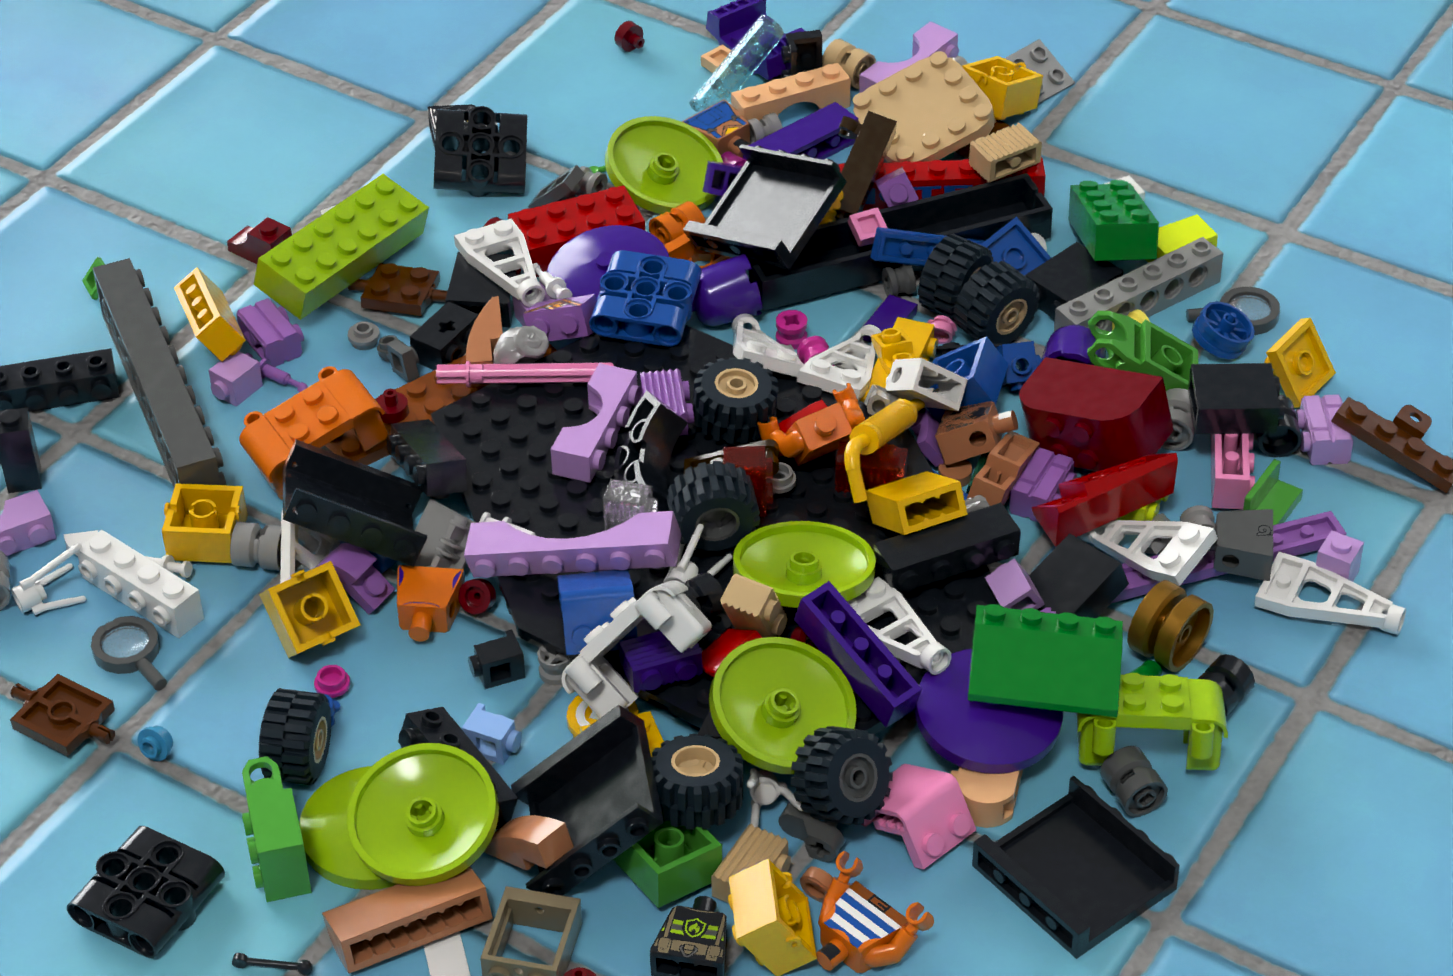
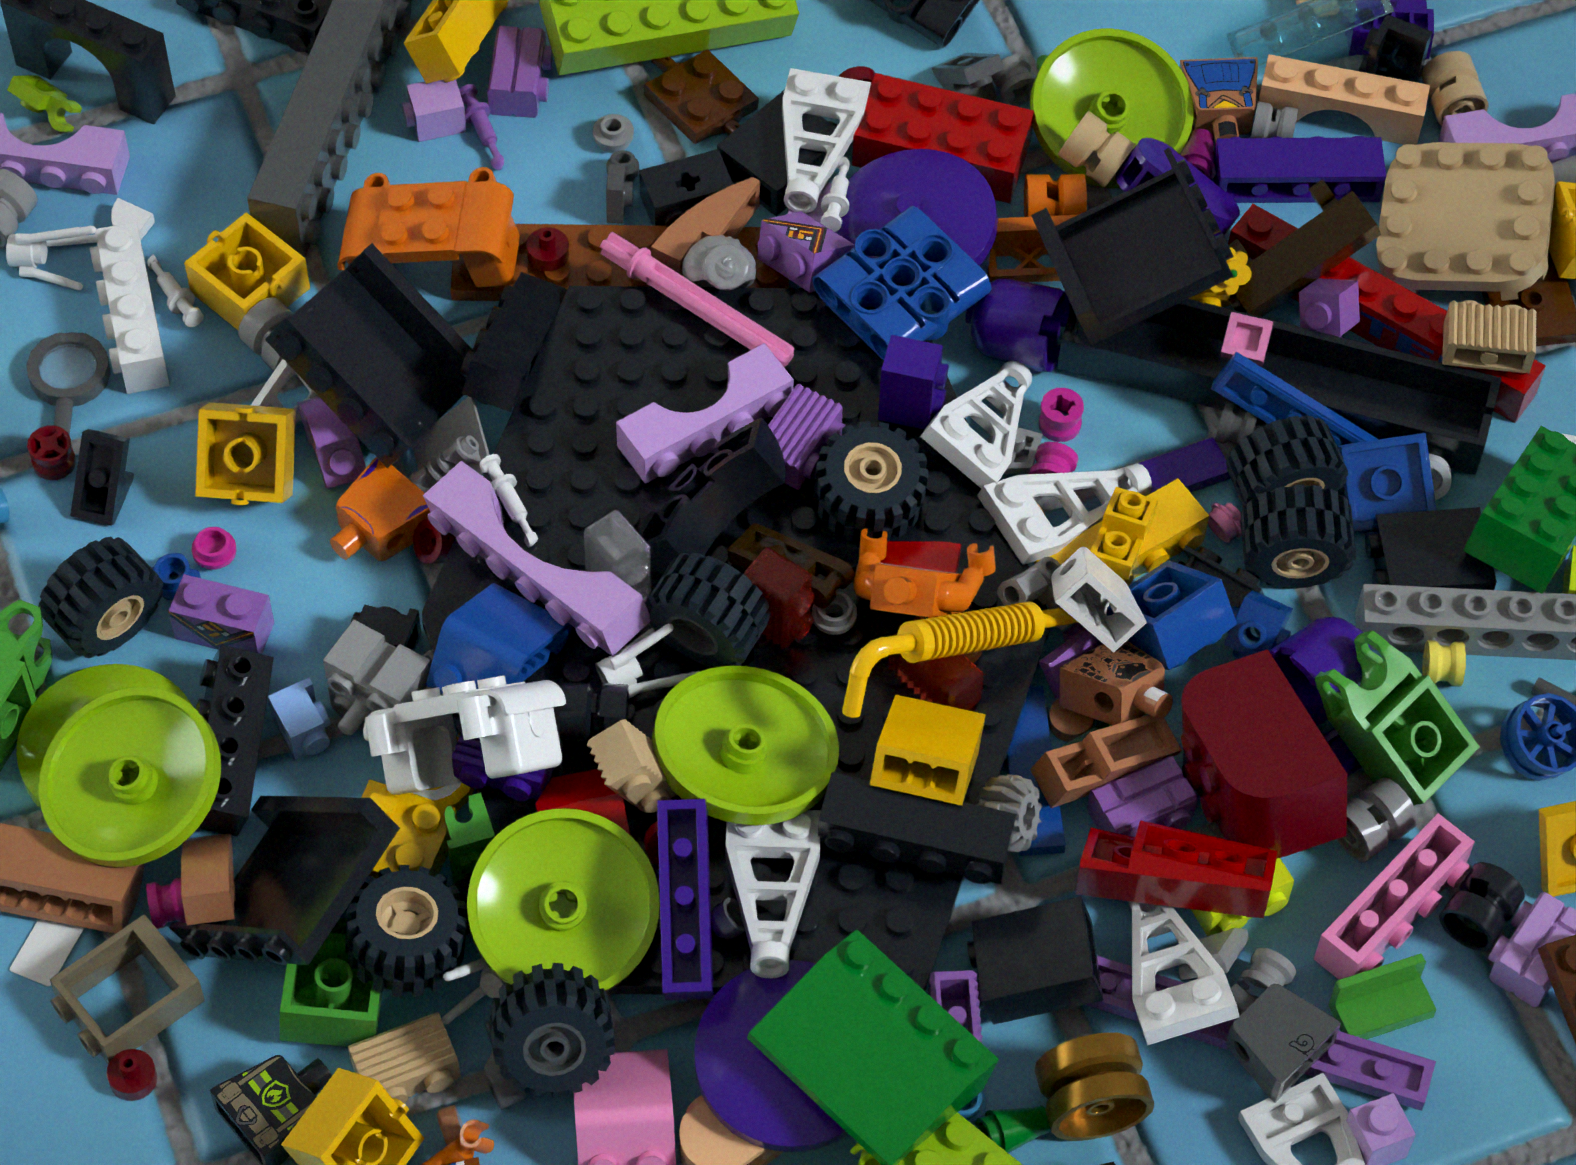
camera: 35 degrees right, 15 degrees up
(165, 692) = (51, 441): none -> dark red wheel
(217, 682) = (101, 477): none -> black slope
(378, 709) = (220, 615): none -> medium lavender brick
(510, 873) = (165, 903): none -> dark pink wheel
(528, 679) = (370, 675): none -> light grey brick
(672, 179) = (1096, 149): none -> tan wheel
(680, 712) = (468, 838): none -> bright green hinge
(708, 332) = (912, 382): none -> dark purple brick
(1014, 587) = (959, 924): lavender brick -> none
(1235, 398) = (1433, 849): black brick -> none

